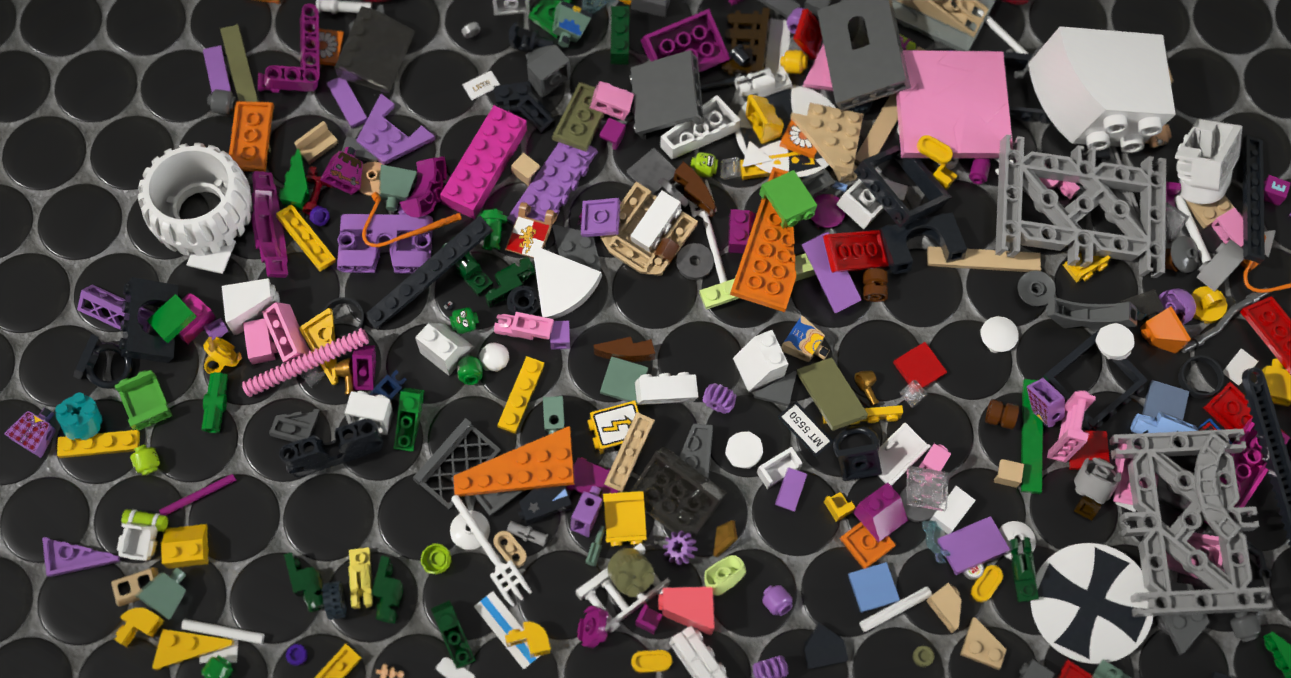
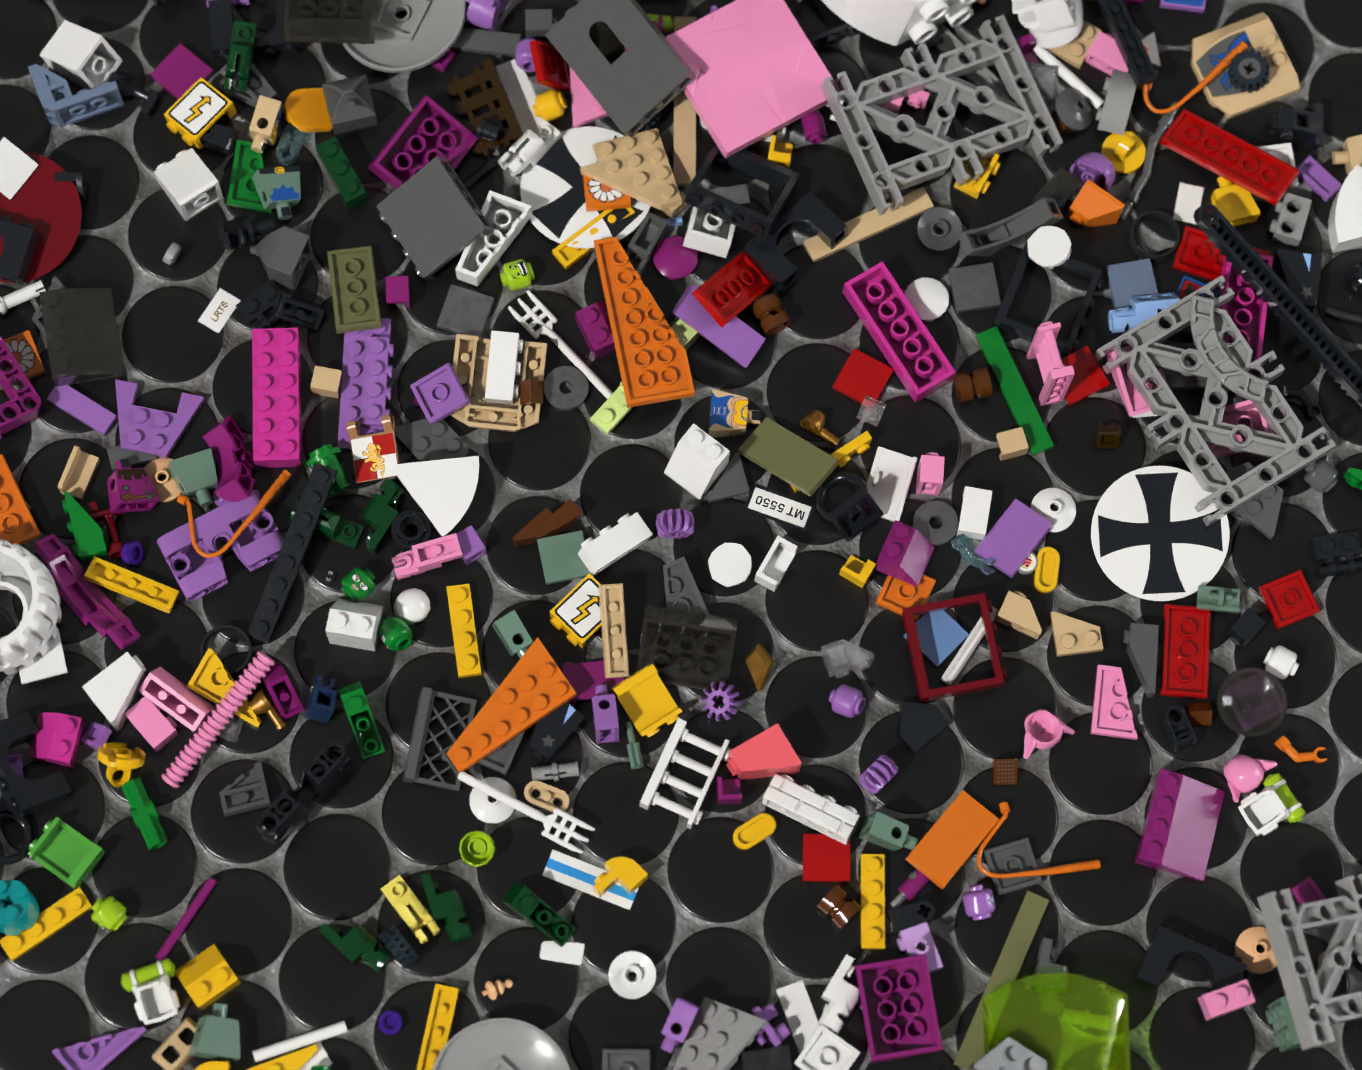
camera: 30 degrees left, 5 degrees up
(171, 318) = (46, 750): green tile -> none
(365, 406) = (316, 732): white brick -> none
(592, 628) = (677, 818): magenta plate -> none
(612, 100) = (377, 255): bright pink brick -> none
(630, 572) = (687, 752): olive piece -> none
(673, 191) = (502, 324): flat silver tile -> none
(694, 188) = (524, 308): reddish brown slope -> none
(724, 574) = (780, 703): yellowish green piece -> none
(730, 168) = (547, 264): clear plate -> none
(754, 156) = (565, 236): white sticker -> none
(763, 118) = (554, 190): yellow slope -> none
(789, 198) = (633, 269): bright green panel -> none
(791, 489) = (799, 579): medium lavender tile -> none
(793, 565) = (844, 656): none -> clear slope
(913, 622) = (916, 654): none -> dark red window
(923, 656) = (1021, 678): olive tile -> none
(927, 488) = (938, 505): clear plate -> none
(934, 149) = (757, 133): yellow tile -> none
(965, 346) = (898, 332): none -> dark pink brick
(1024, 571) = (1077, 537): dark green plate -> none
(1040, 344) = (974, 287): none -> flat silver tile
(1046, 402) = (1017, 354): medium lavender torso -> none
(1097, 480) = (1103, 404): light grey brick -> none

